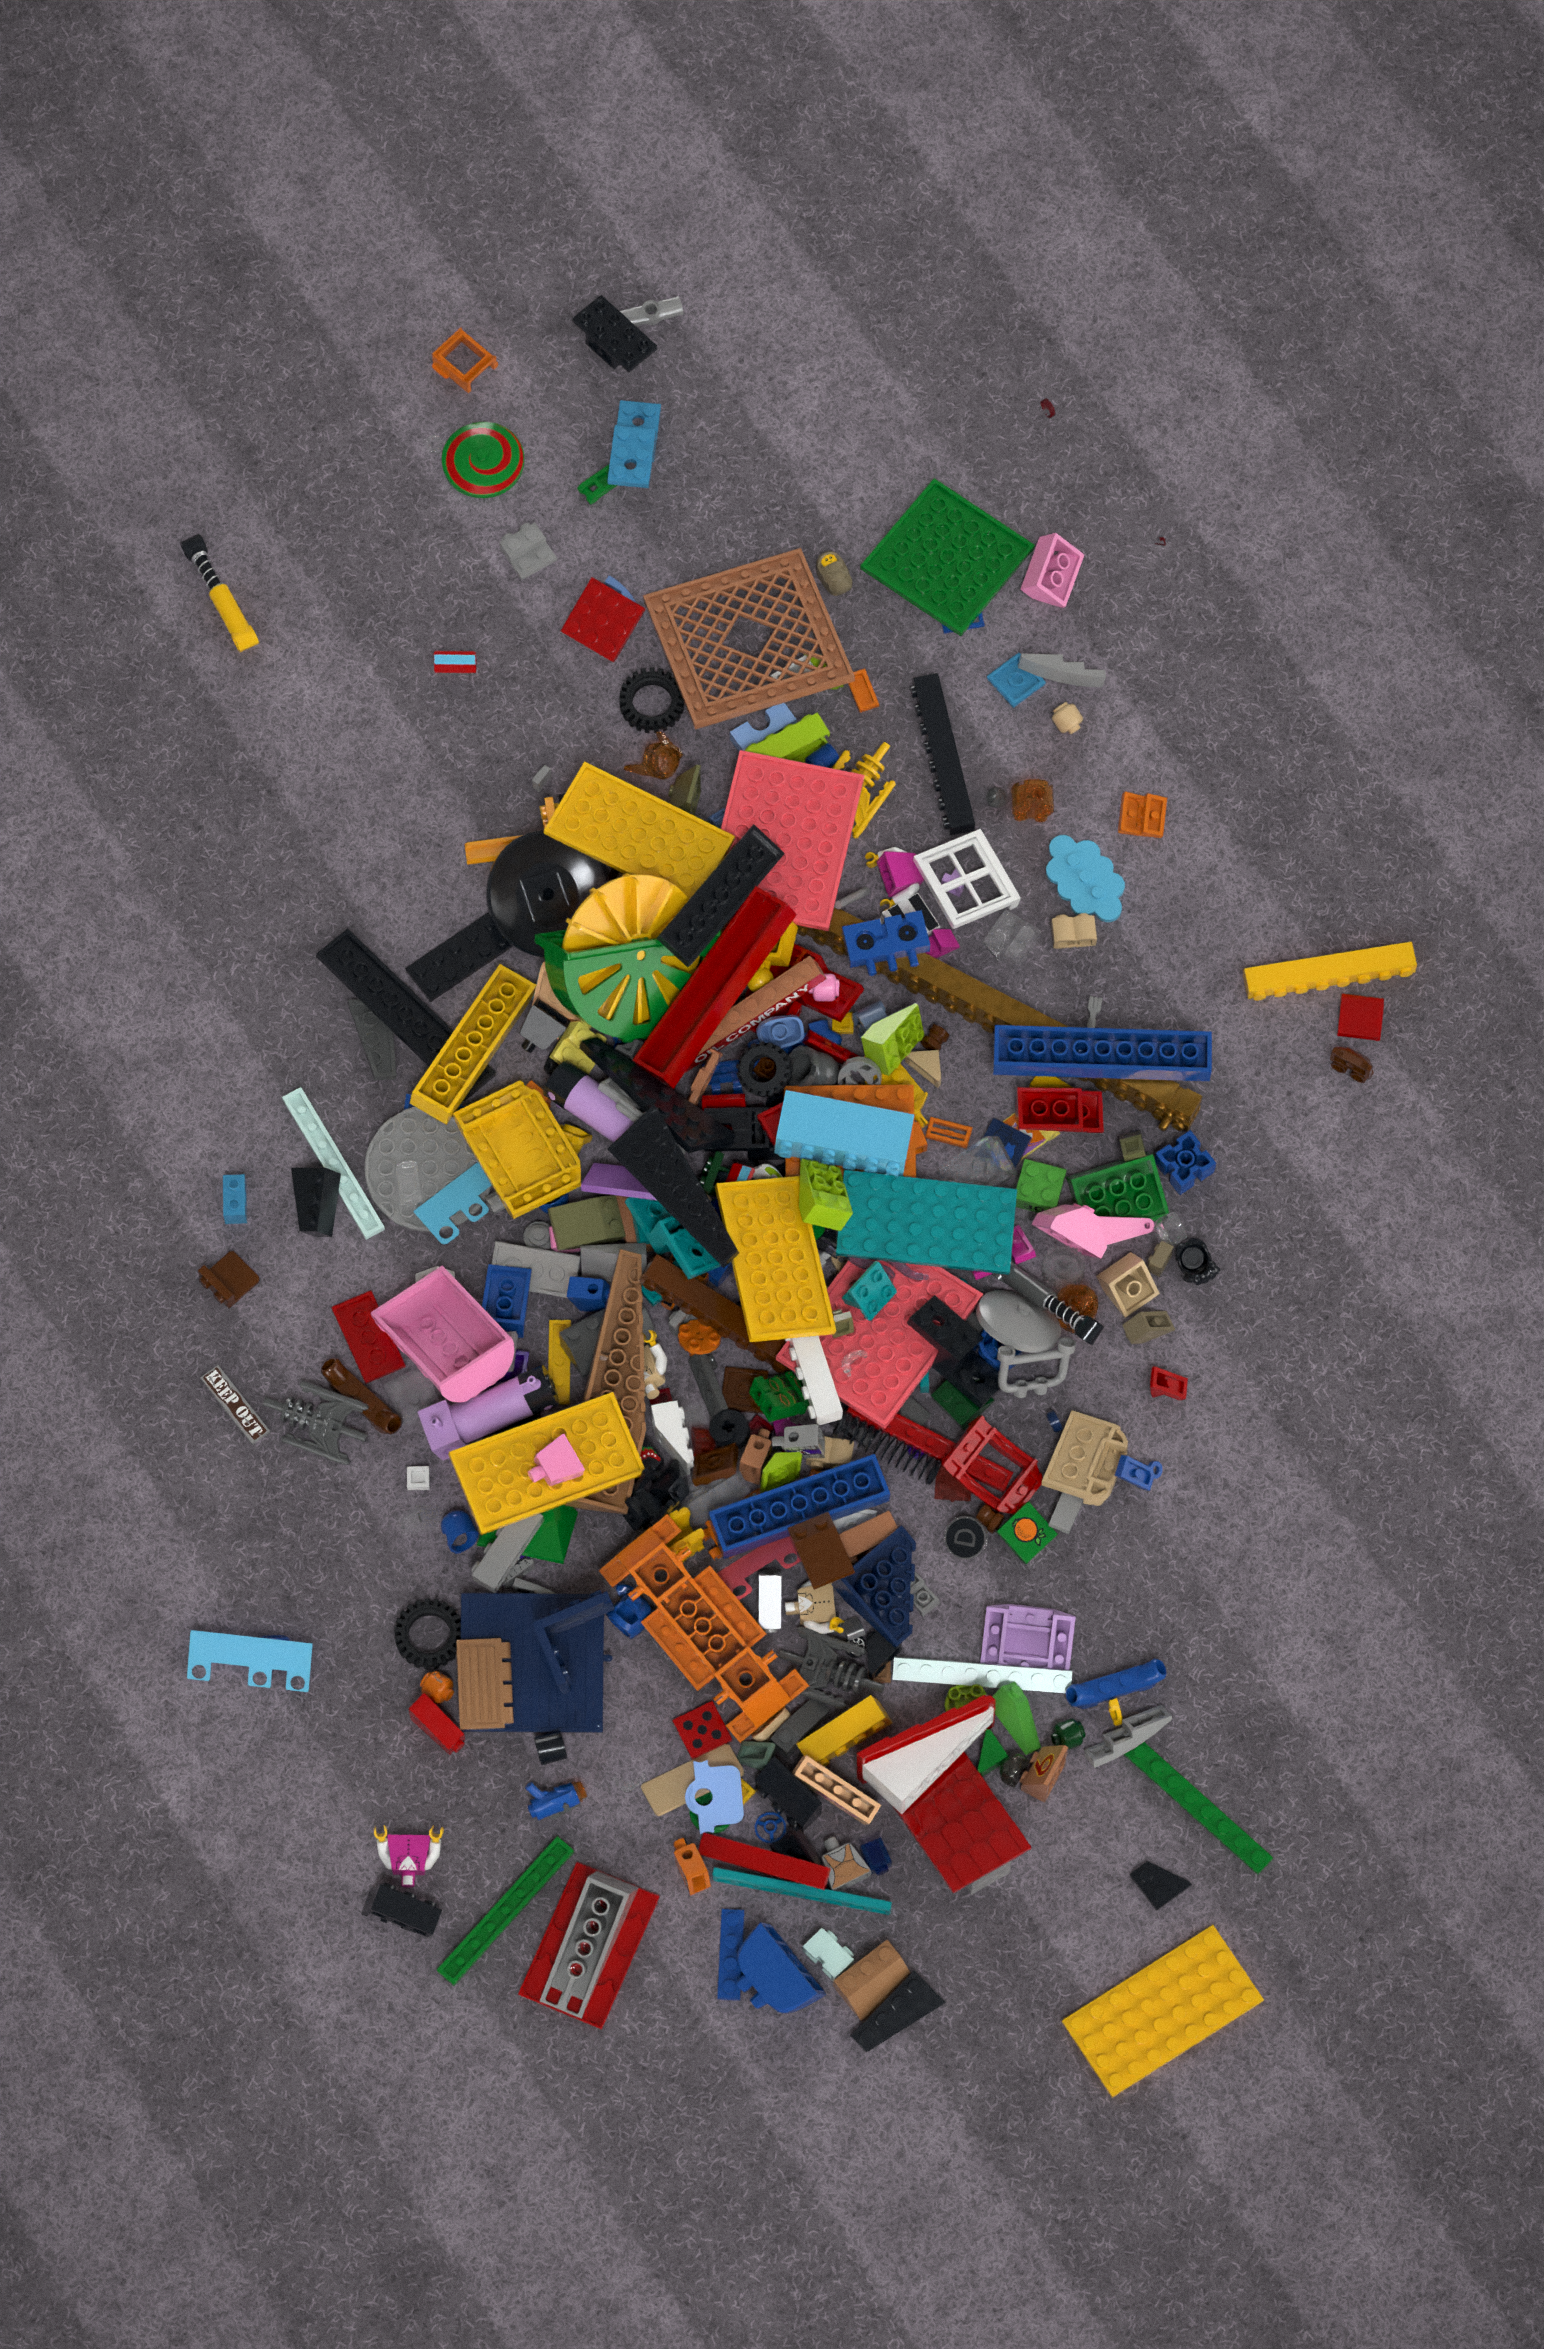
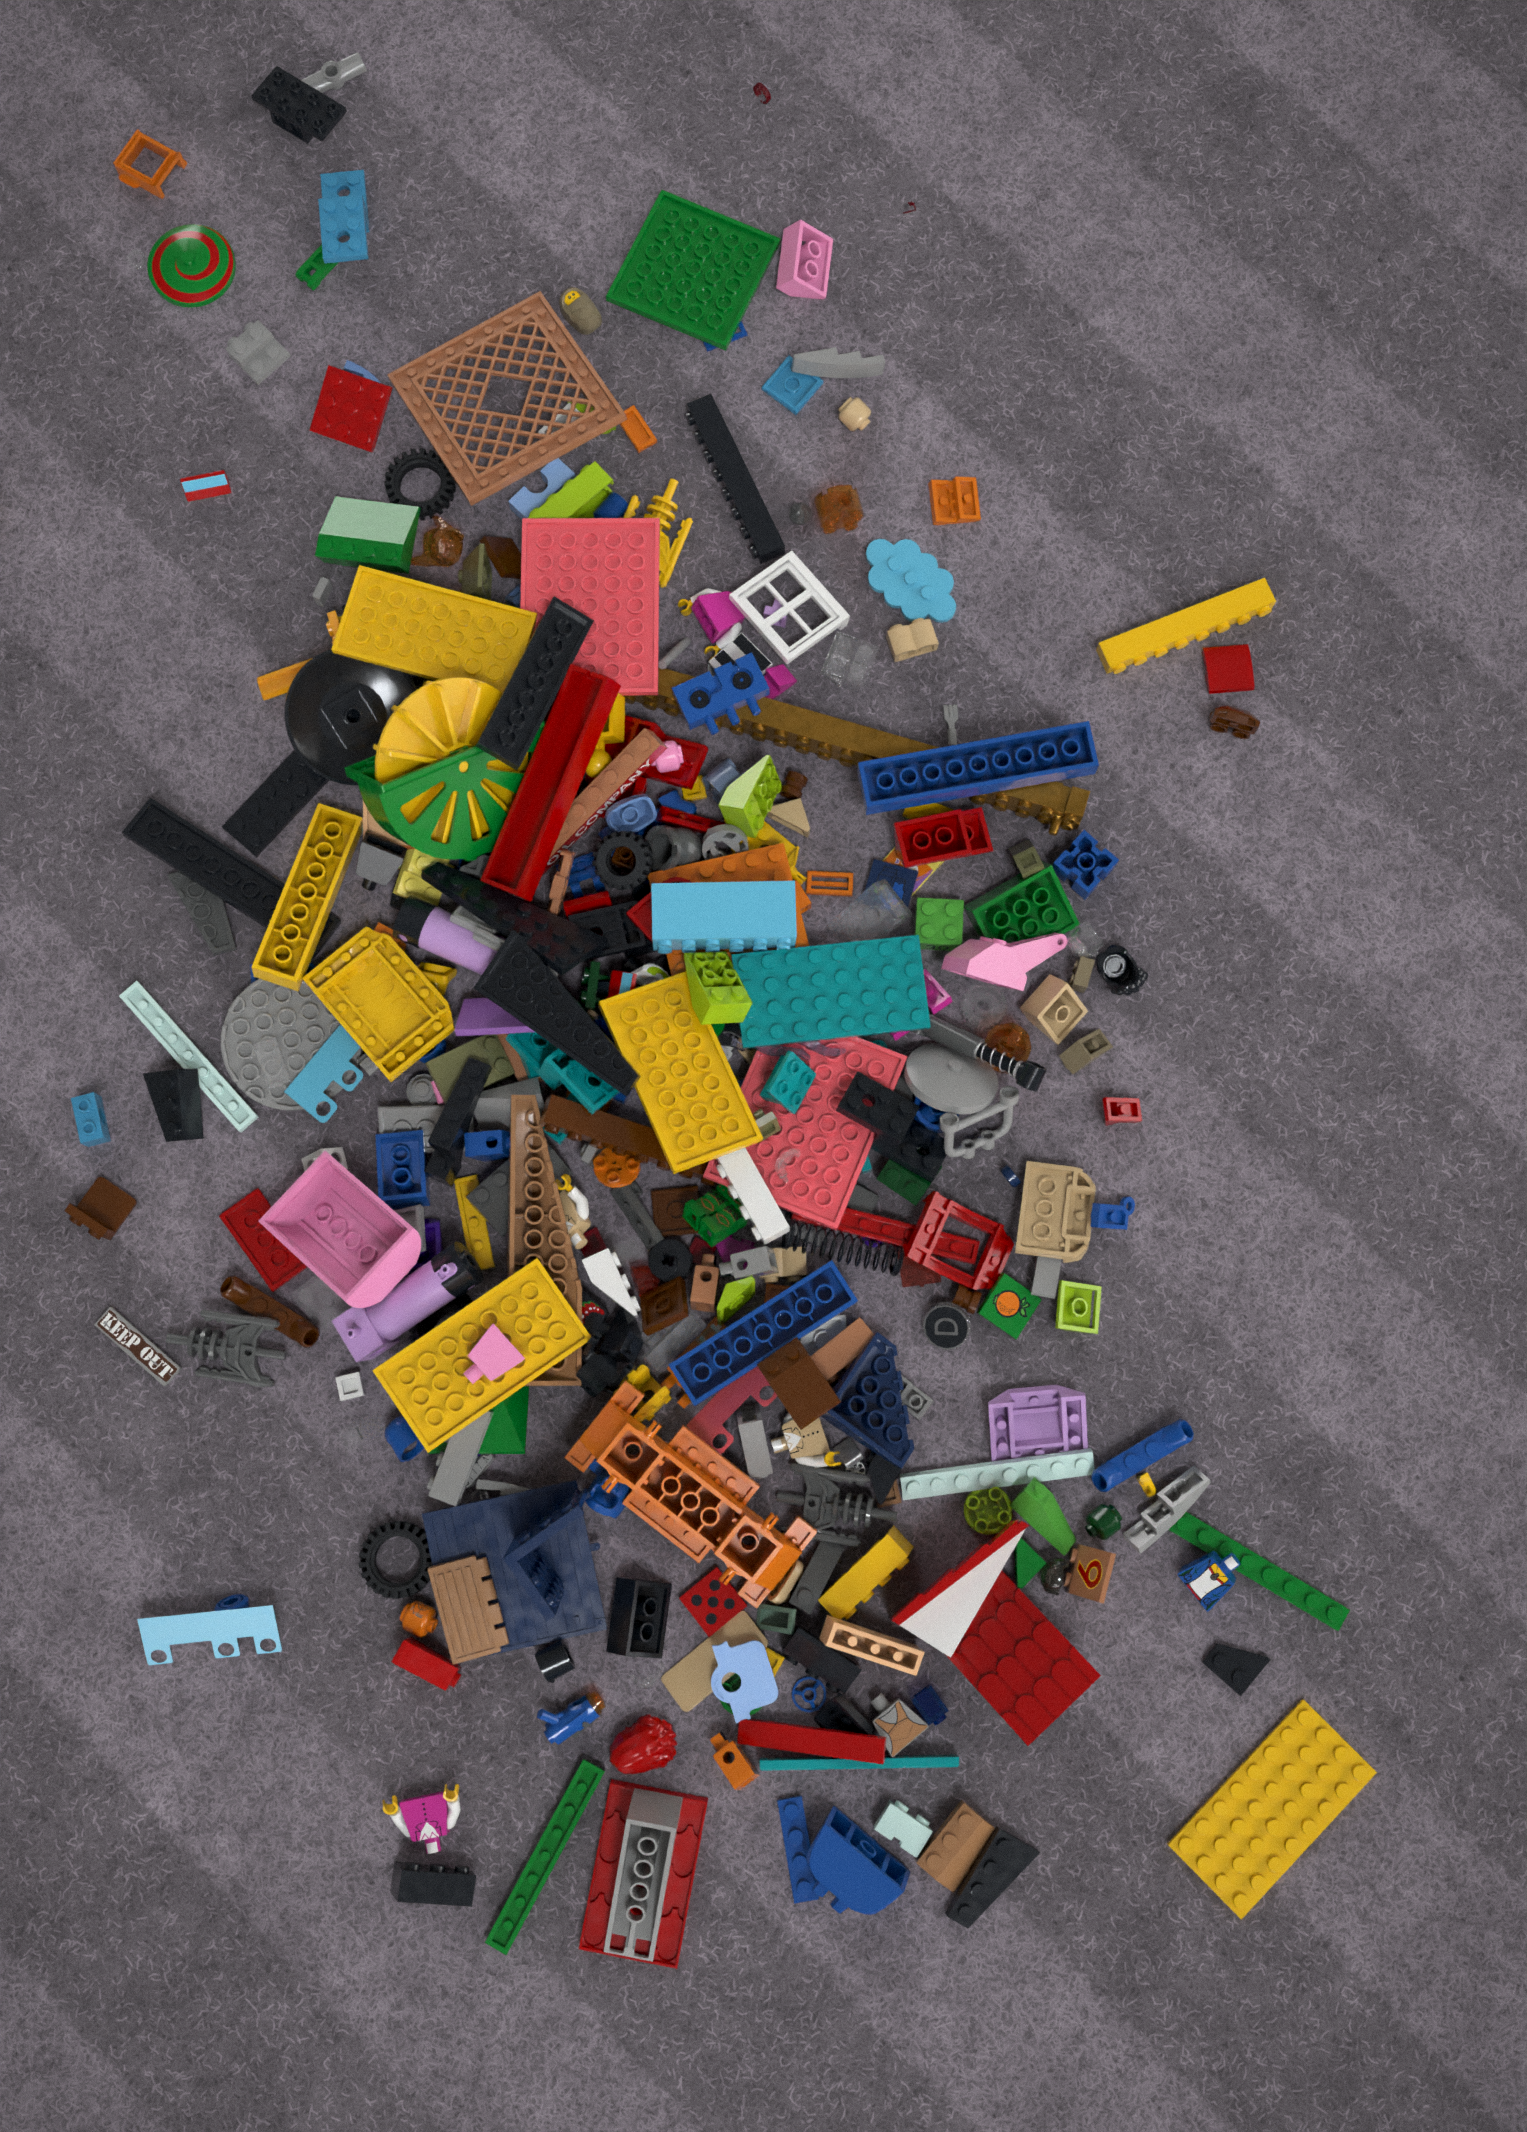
camera: 10 degrees left, 10 degrees up
(562, 1265) = (454, 1121): none -> black arch
(595, 736) = (368, 534): none -> slope
(613, 1836) = (643, 1746): none -> red piece
(633, 1728) = (639, 1618): none -> black slope
(715, 780) = (504, 556): none -> reddish brown tile
(1086, 1547) = (1075, 1307): none -> lime slope
(1152, 1801) = (1209, 1577): none -> torso

